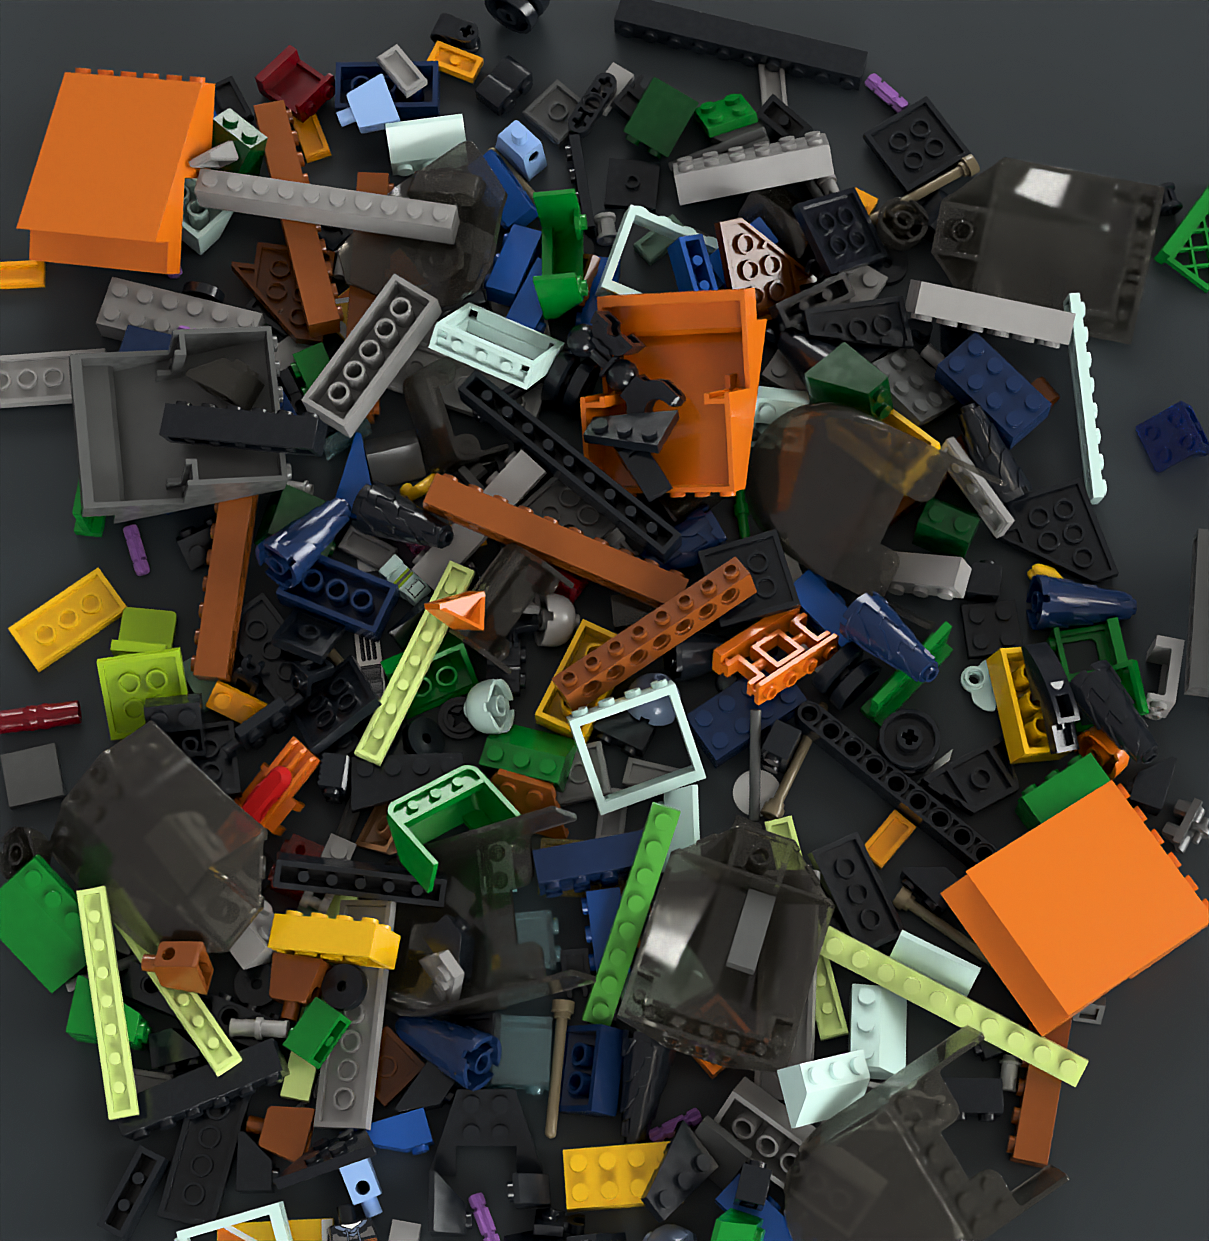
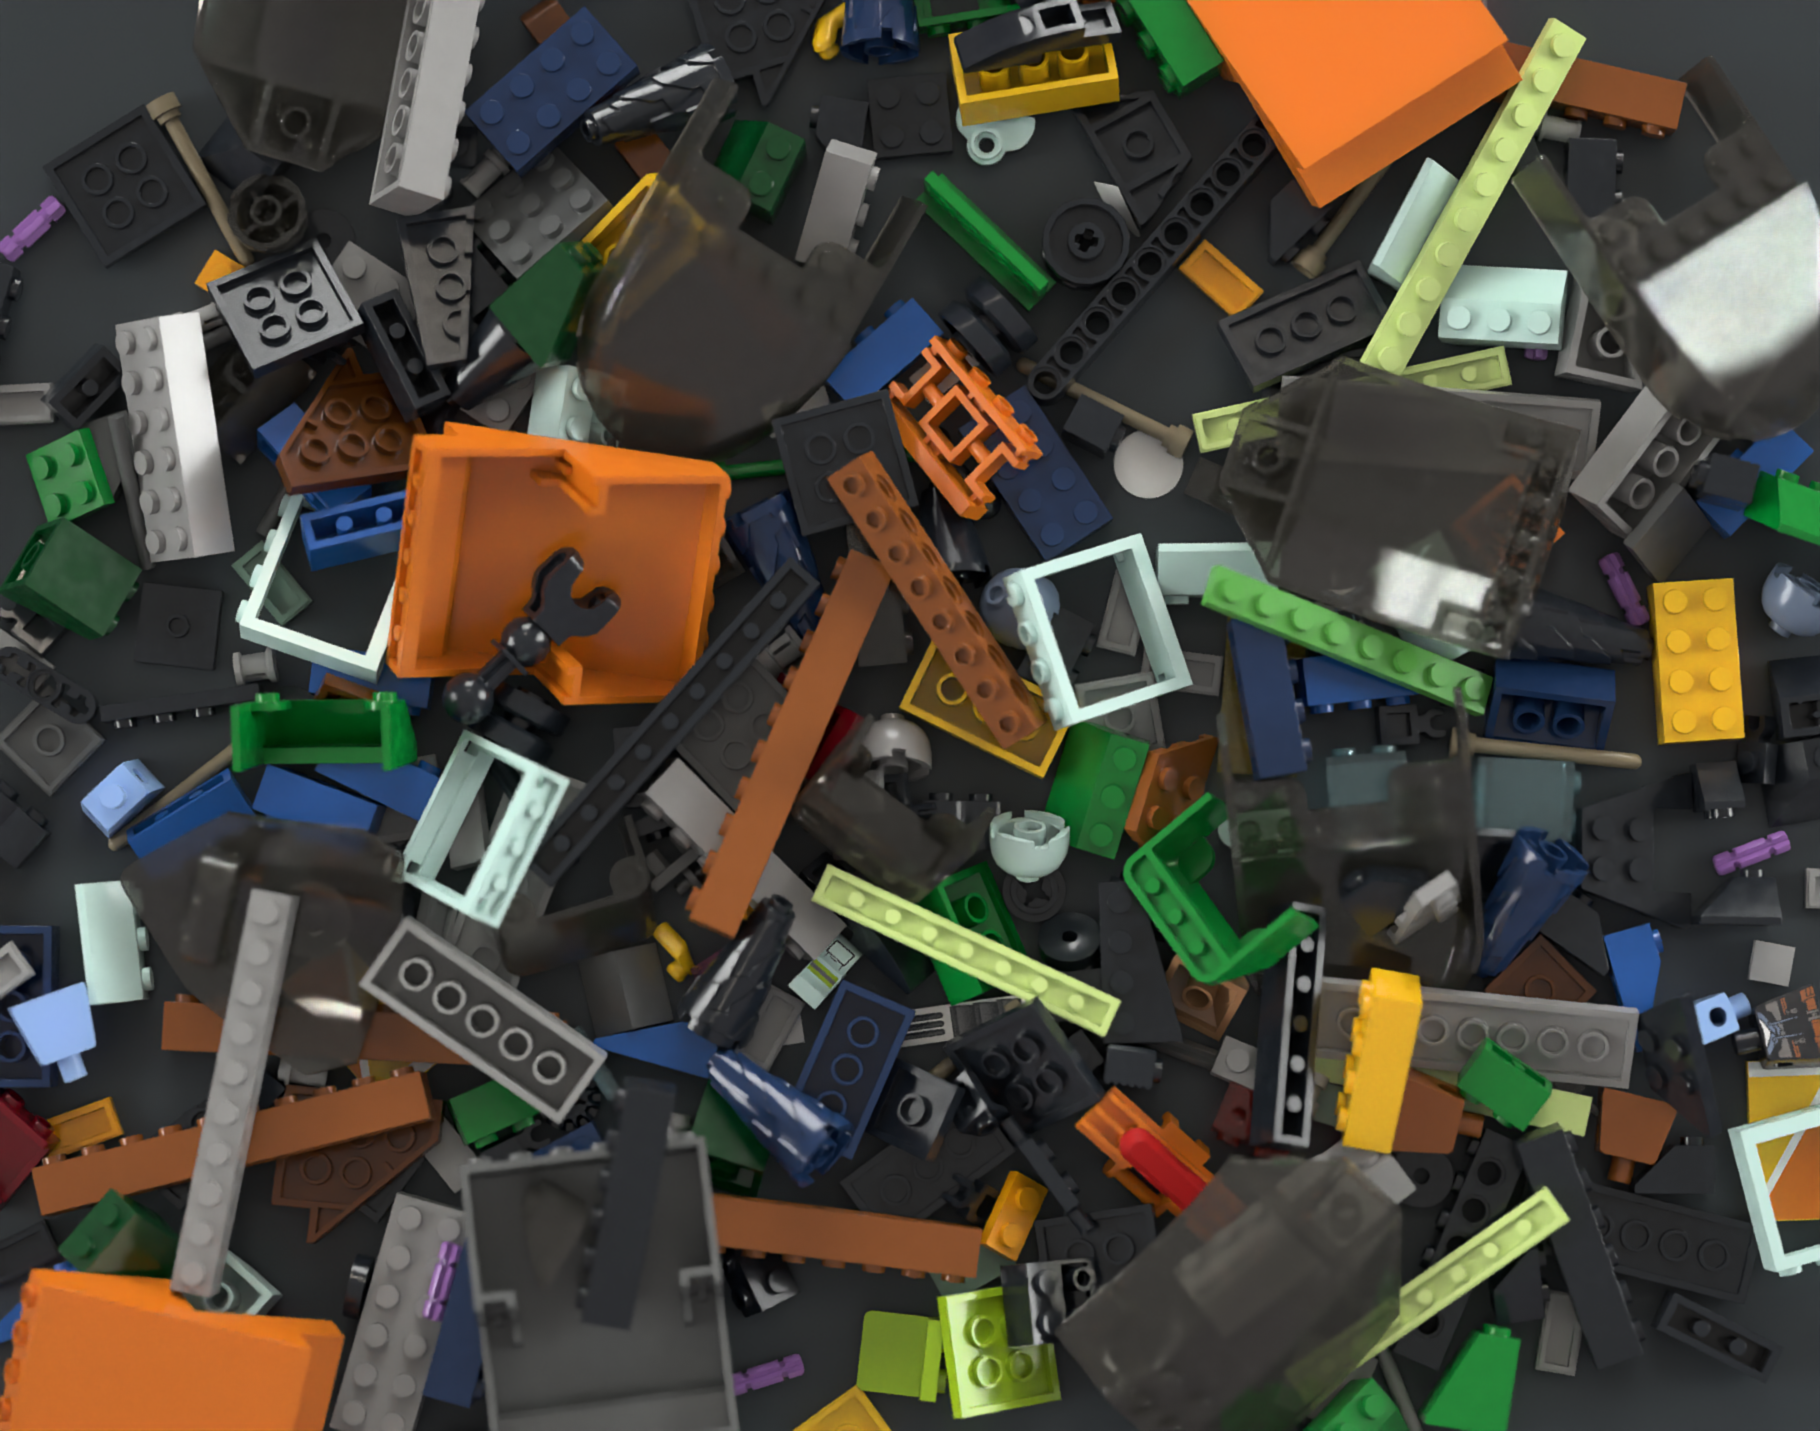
camera: 90 degrees left, 15 degrees up
(107, 1003) = (1465, 1378): yellowish green tile -> none
(181, 966) = (1418, 1261): dark orange torso -> none
(216, 156) = (149, 1266): light grey slope -> none
(259, 1028) = (1495, 1166): light grey pin -> none
(354, 993) = (1452, 1059): black piece -> none
(460, 611) = (894, 879): orange slope -> none
(609, 336) = (476, 655): black cylinder -> none
(632, 431) = (622, 626): black wing -> none
(644, 472) = (669, 615): black slope -> none
(681, 1171) = (1700, 579): black wing -> none
(750, 931) = (1375, 473): dark grey tile -> none
(755, 764) = (1117, 463): dark grey bar -> none
(823, 1087) = (1595, 379): light aqua slope -> none
(884, 635) = (944, 270): dark blue cone -> none
(978, 492) = (747, 104): light grey tile -> none

